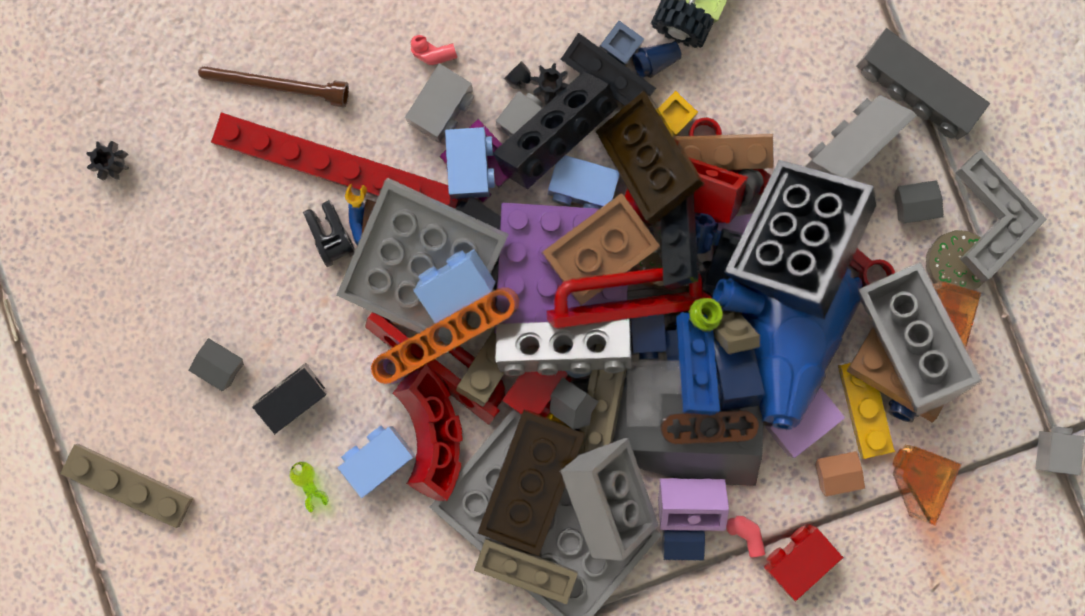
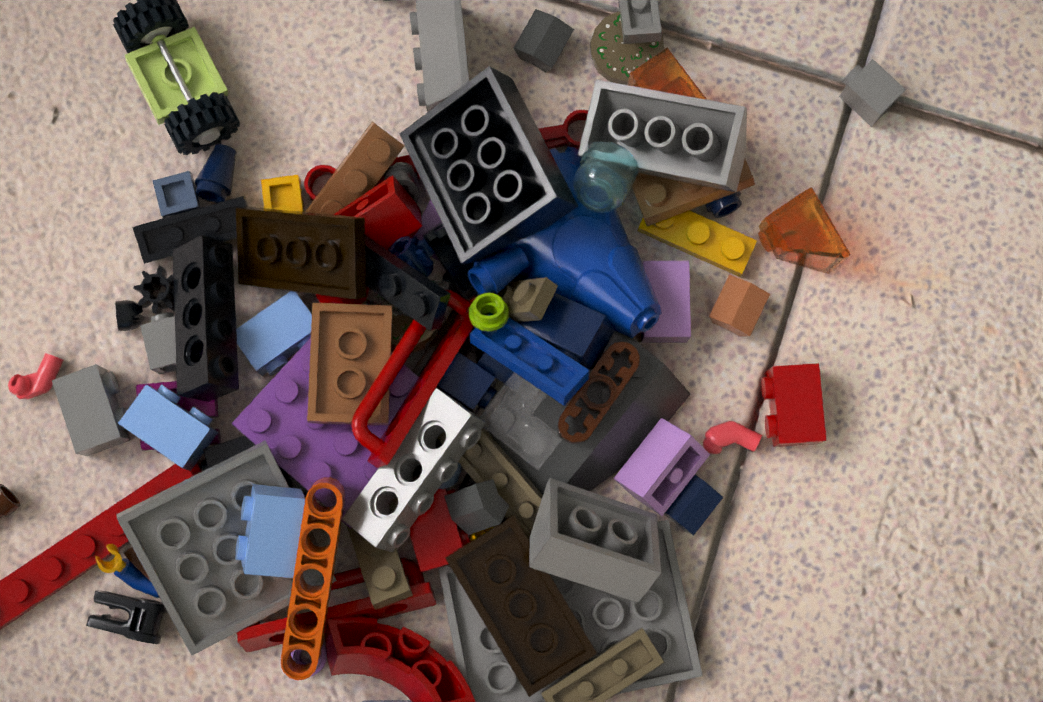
camera: 50 degrees left, 5 degrees down
(858, 321) = (604, 177): none -> clear light blue helmet

